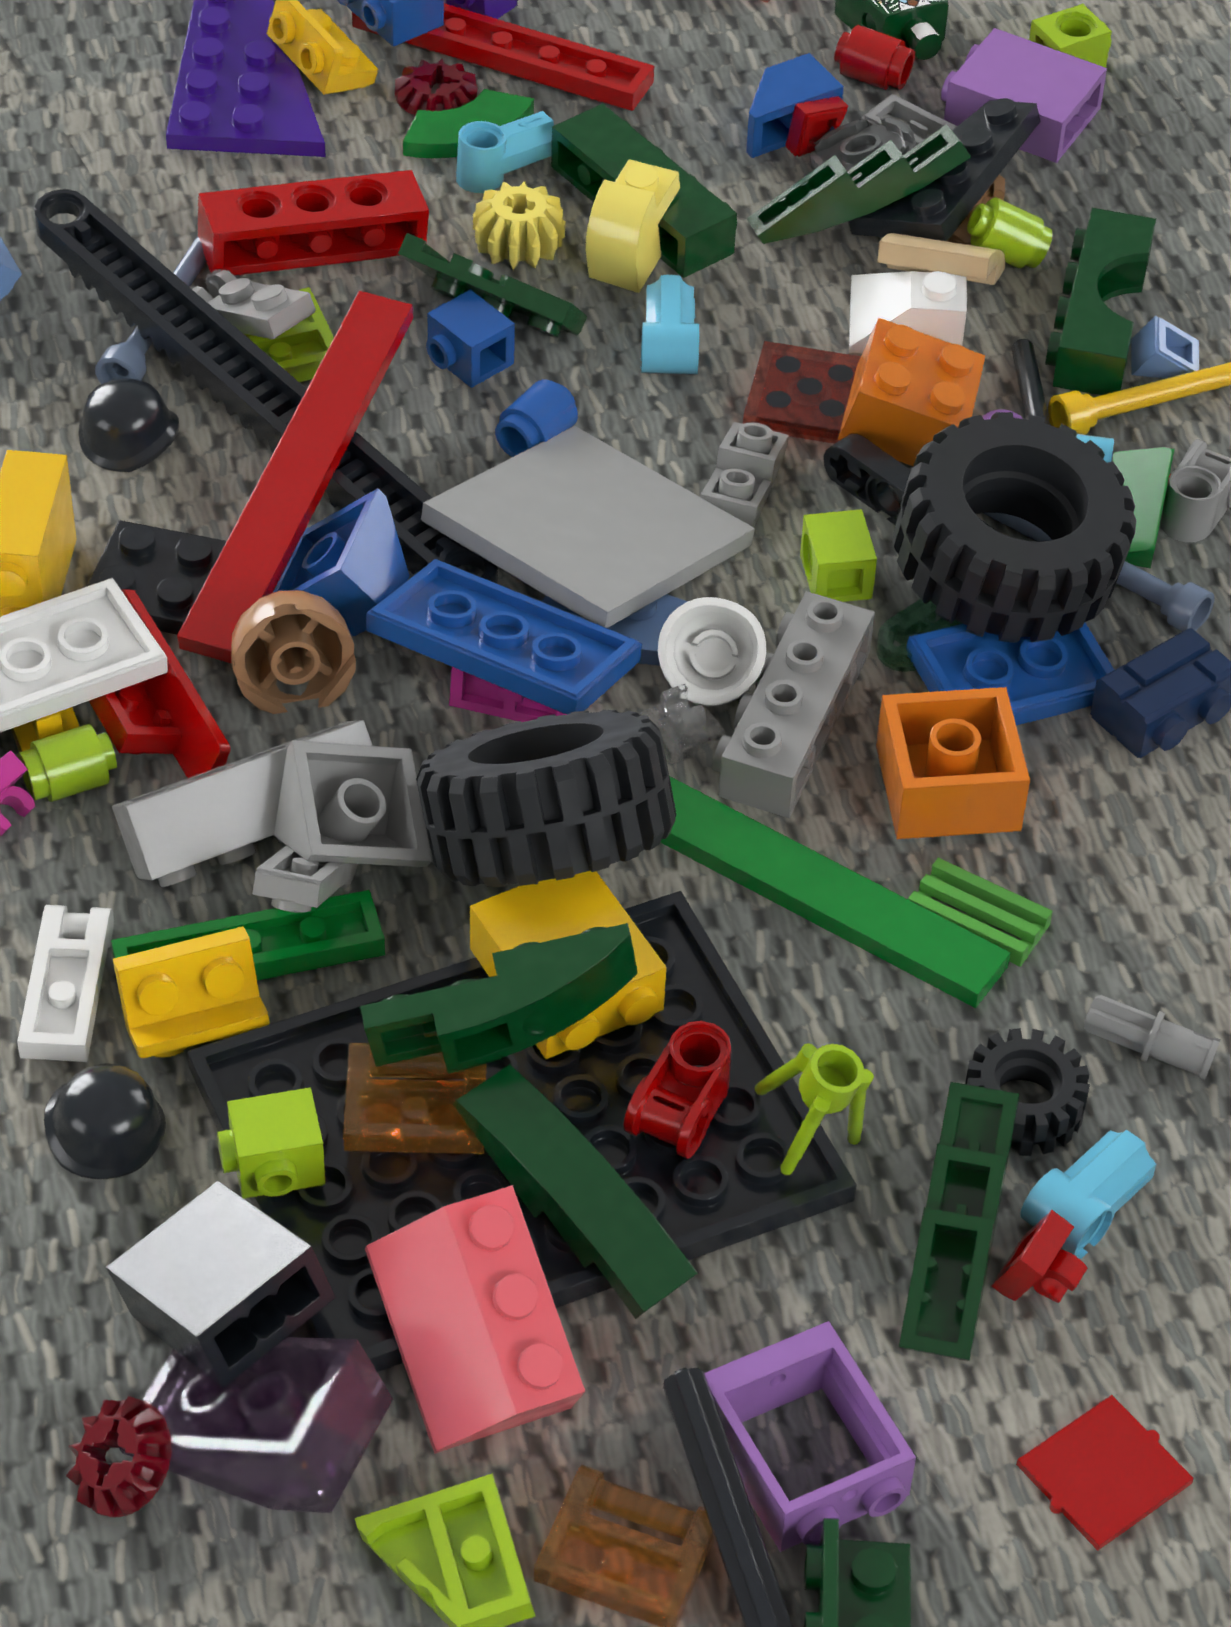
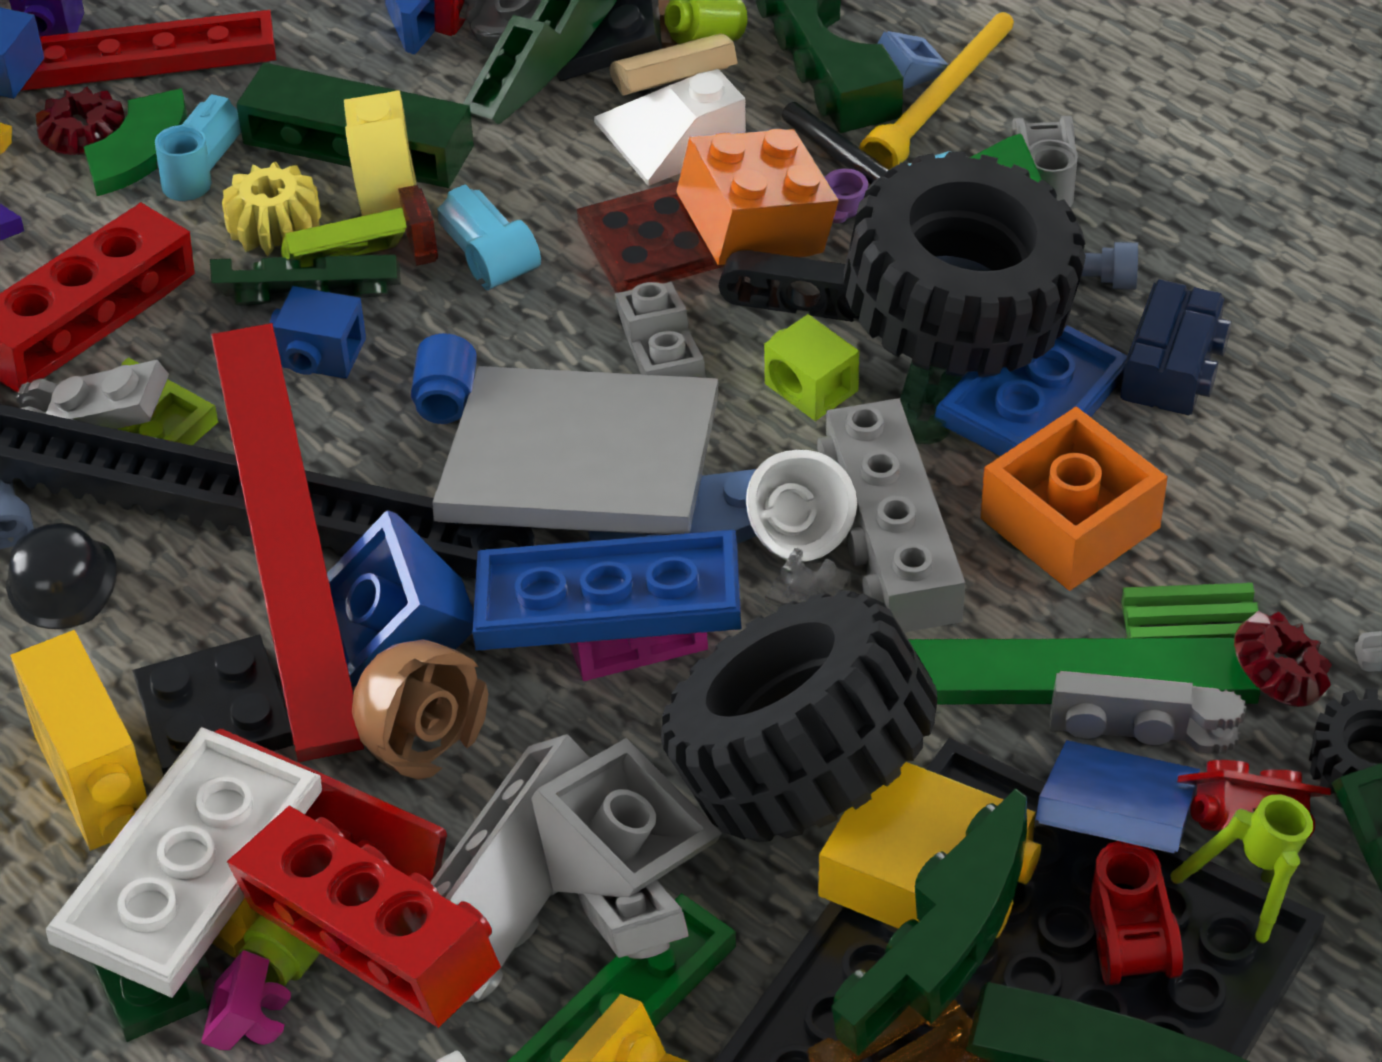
camera: 30 degrees left, 0 degrees up
(100, 762) = (366, 914): none -> red brick
(545, 272) = (346, 237): none -> lime tile
(617, 290) = (419, 225): none -> clear red tile
(761, 999) = (1117, 796): none -> blue tile
(861, 957) = (1146, 710): none -> light grey hinge
(899, 1081) = (1230, 787): none -> red hinge
(1001, 995) = (1290, 680): none -> dark red gear

